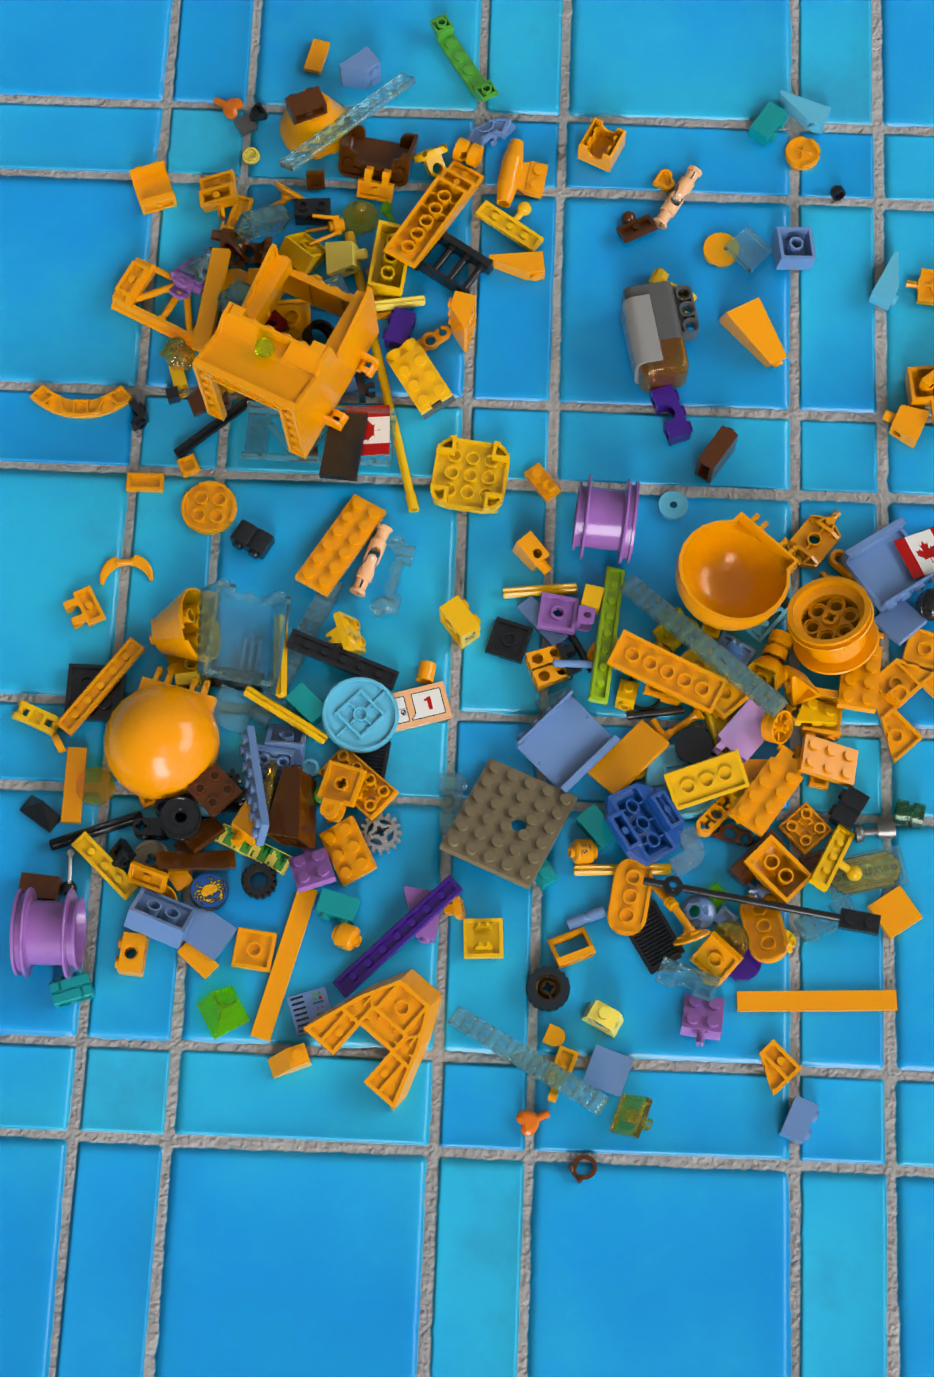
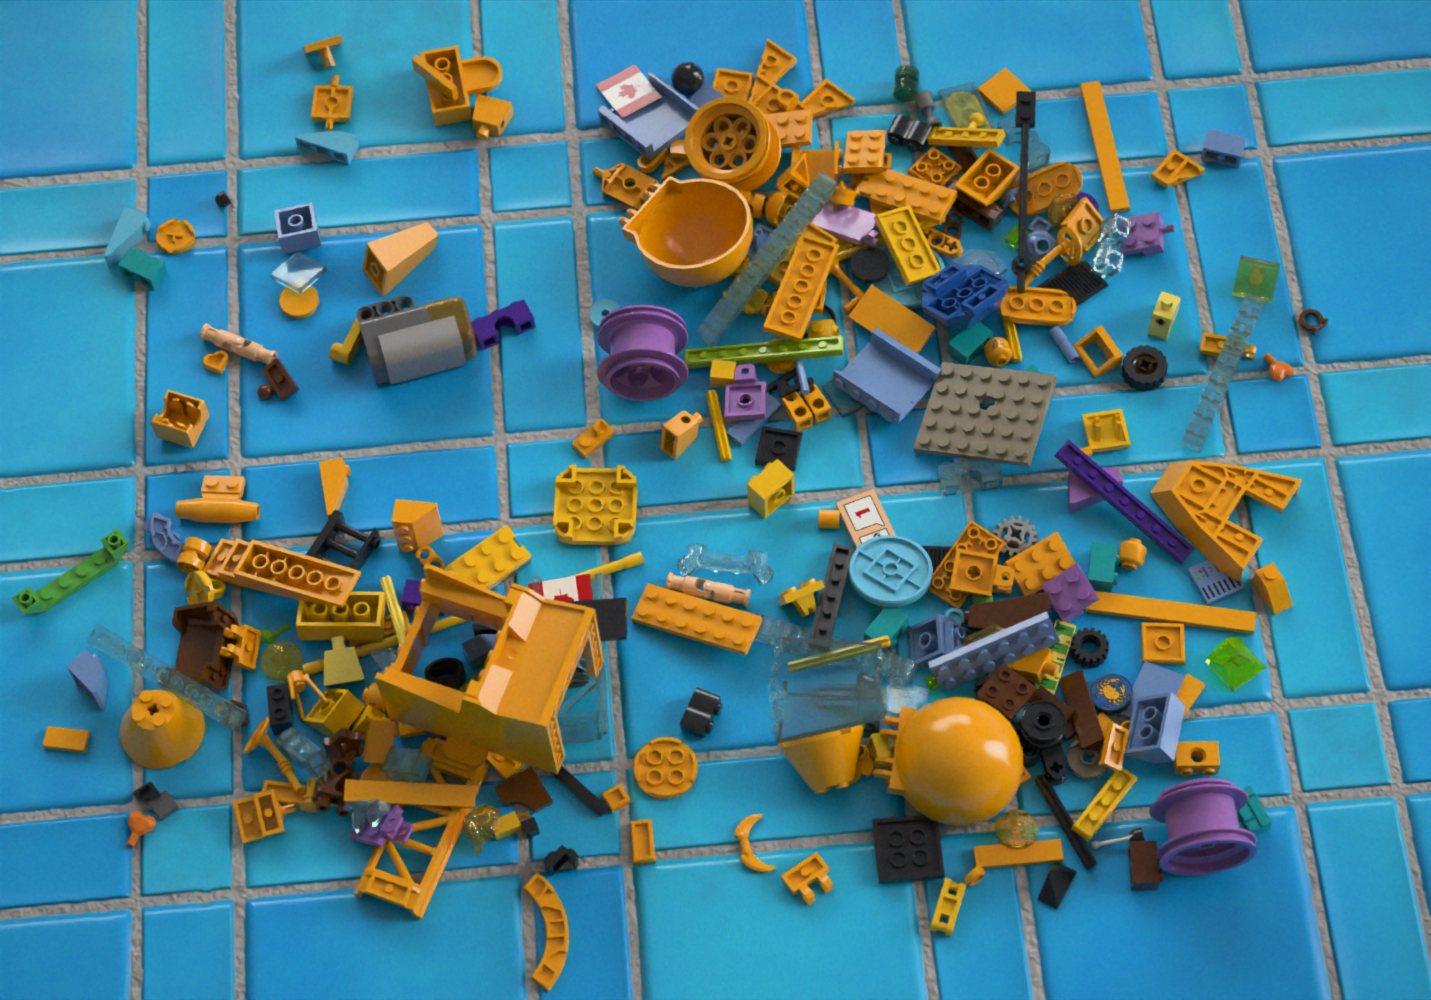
camera: 95 degrees left, 10 degrees down
(100, 686) = (902, 839): light orange tile -> none
(122, 854) = (1089, 785): black bracket -> none
(153, 187) = (257, 896): light orange panel -> none
(251, 155) = (206, 792): light yellow plate -> none
(264, 348) = (517, 654): clear neon green tile -> none
(285, 714) = (904, 641): yellow axle -> none
(306, 105) = (159, 708): reddish brown brick -> none
(510, 225) = (284, 504): yellow plate -> none
(554, 1036) = (1190, 359): light orange tile -> none
(608, 1070) = (1214, 308): medium blue tile -> none
(655, 713) = (837, 308): black bar -> none
(716, 453) = (547, 274): reddish brown brick -> none
(818, 714) = (818, 161): yellow wing -> none

